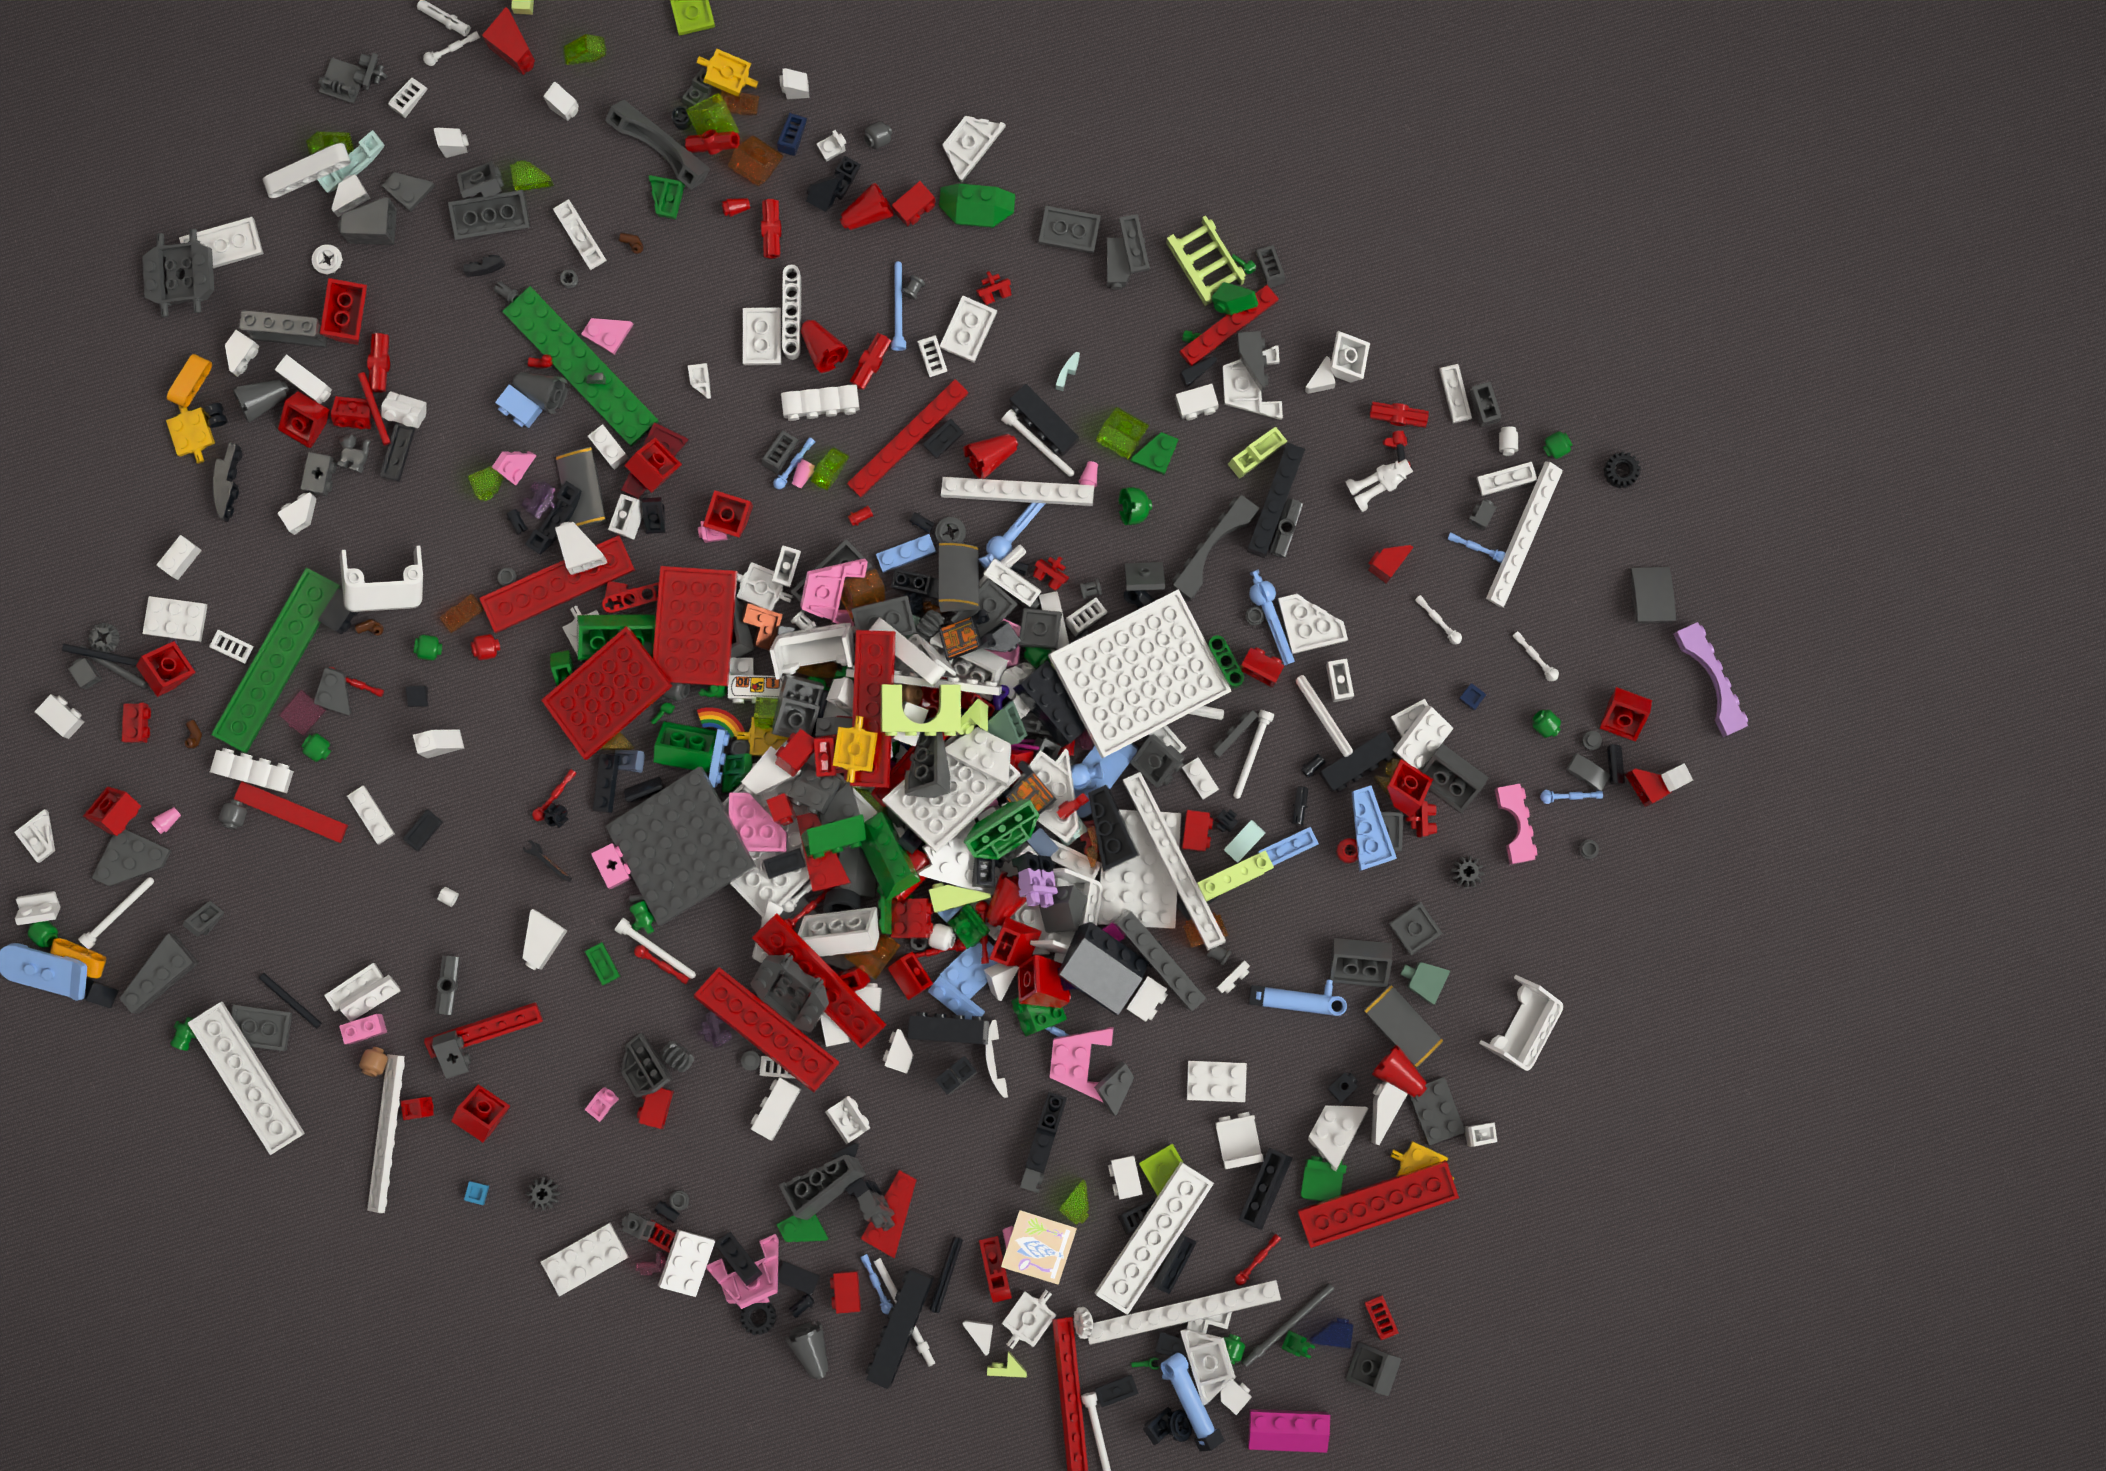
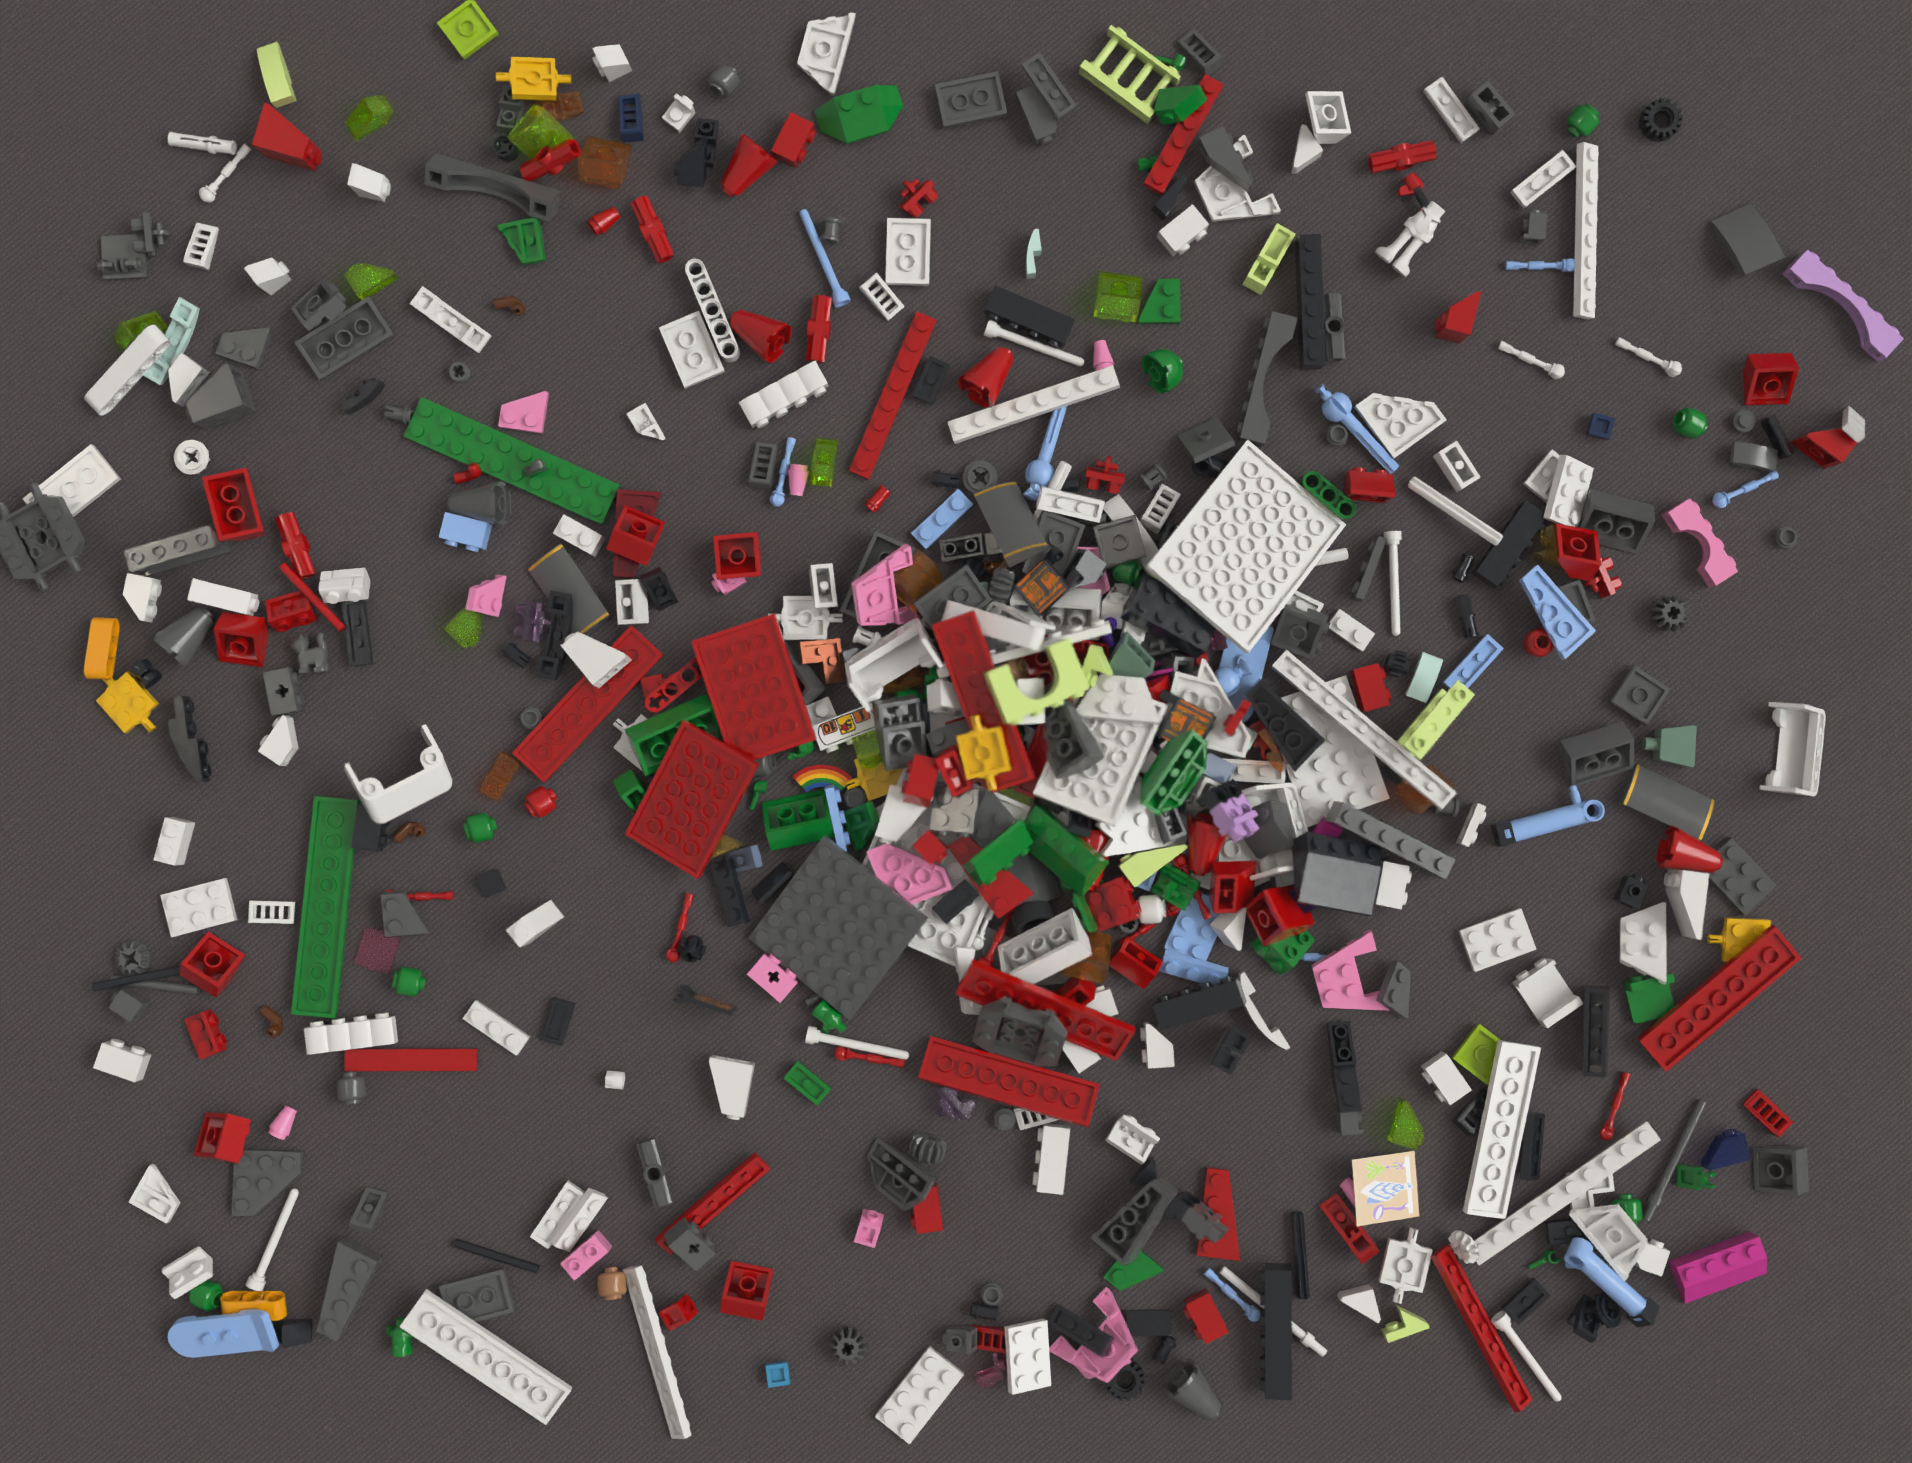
camera: 25 degrees left, 5 degrees up
(1480, 1134) = (1792, 882): white slope -> none
(1508, 441) = (1528, 137): white brick -> none

